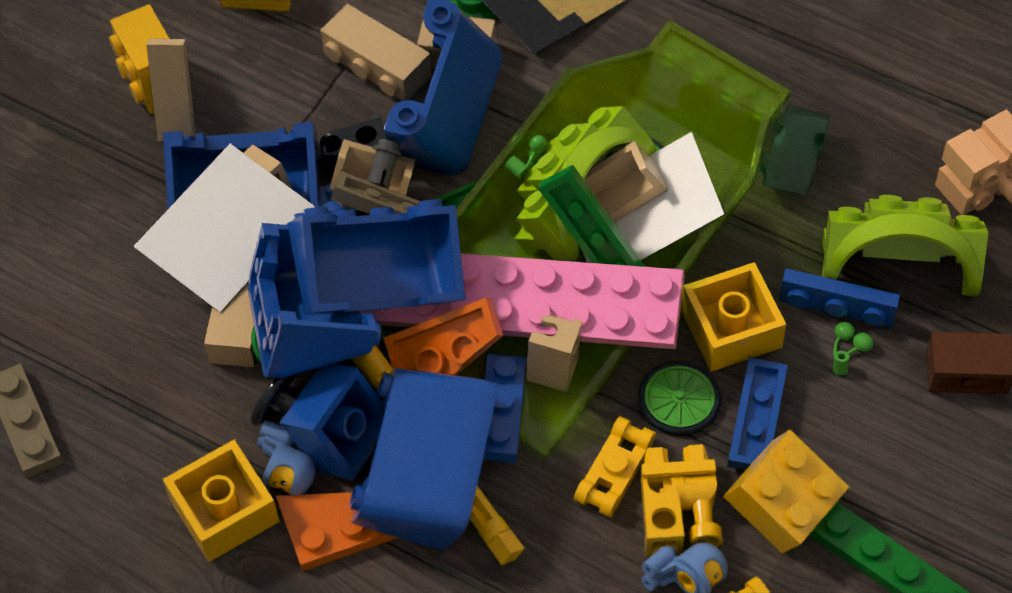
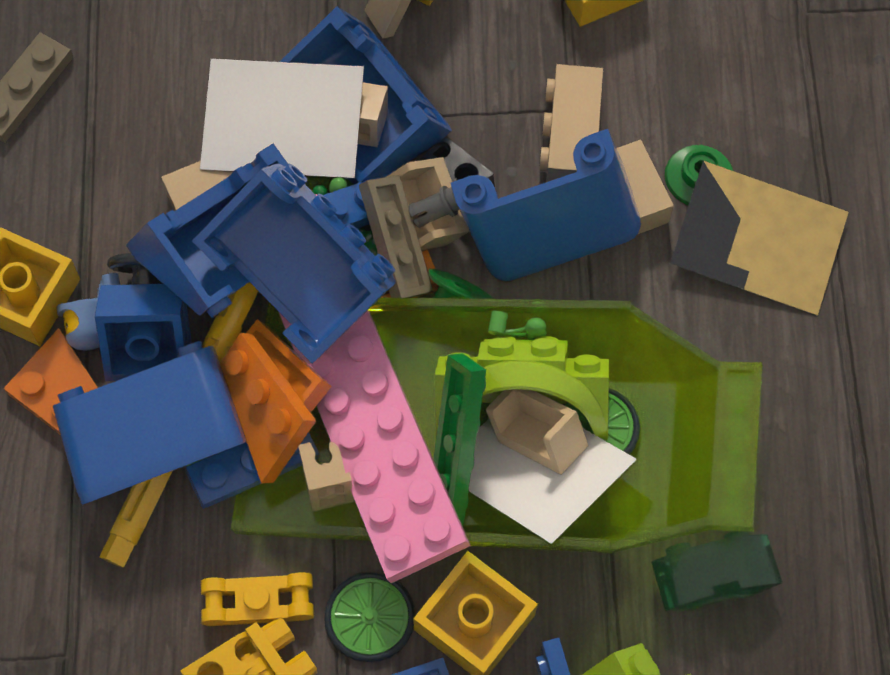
camera: 55 degrees right, 10 degrees up
(479, 351) = (266, 406): none -> orange wing

